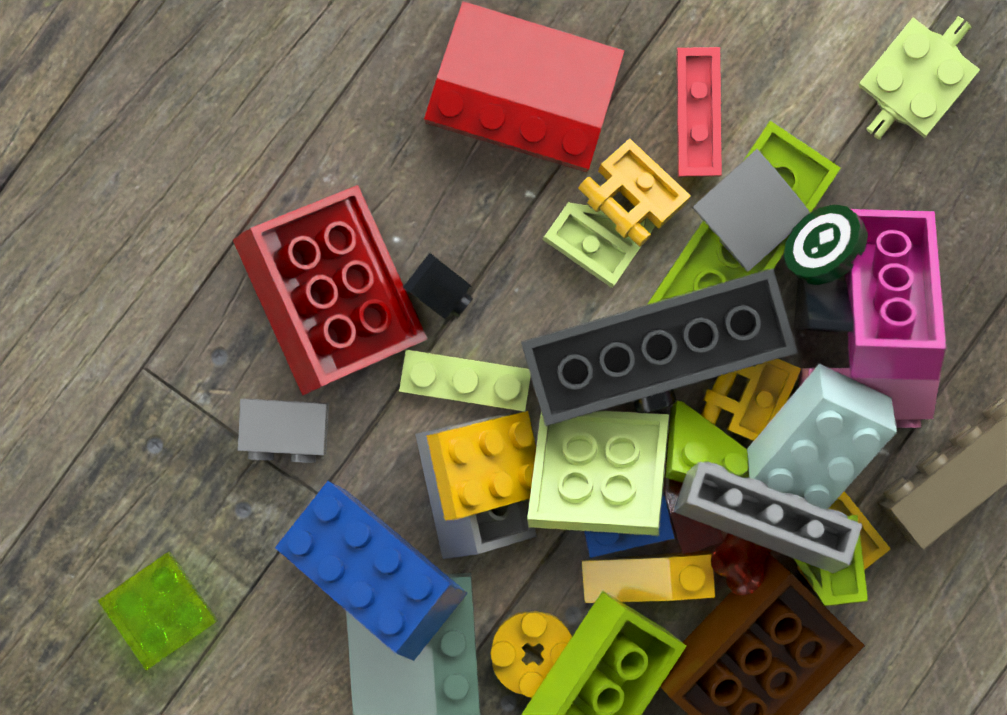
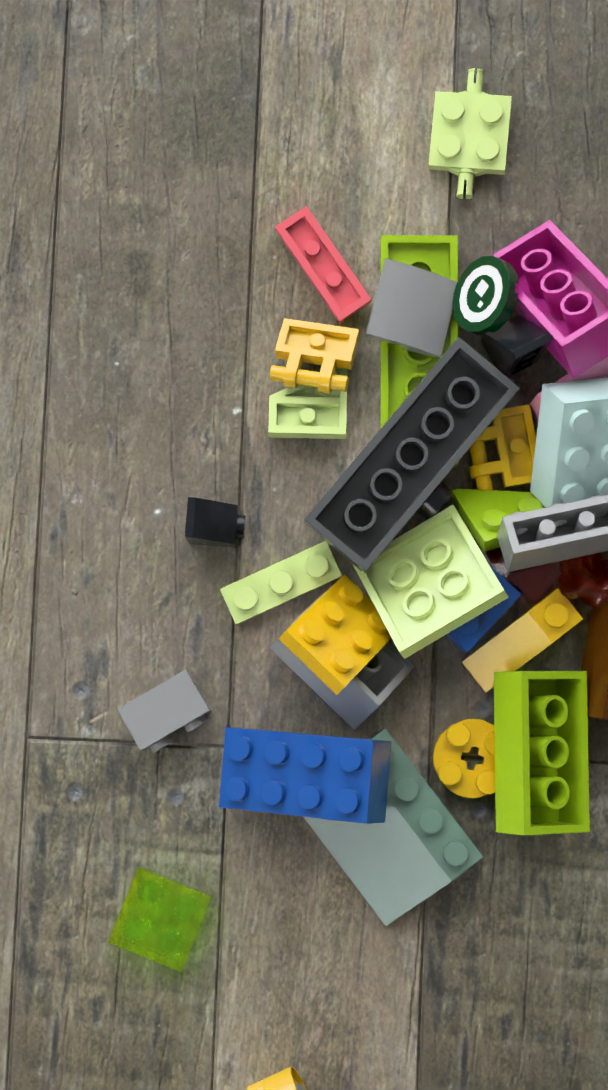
camera: 30 degrees left, 5 degrees down
(329, 289) = (130, 581): red slope -> none
(524, 87) = (179, 333): slope -> none

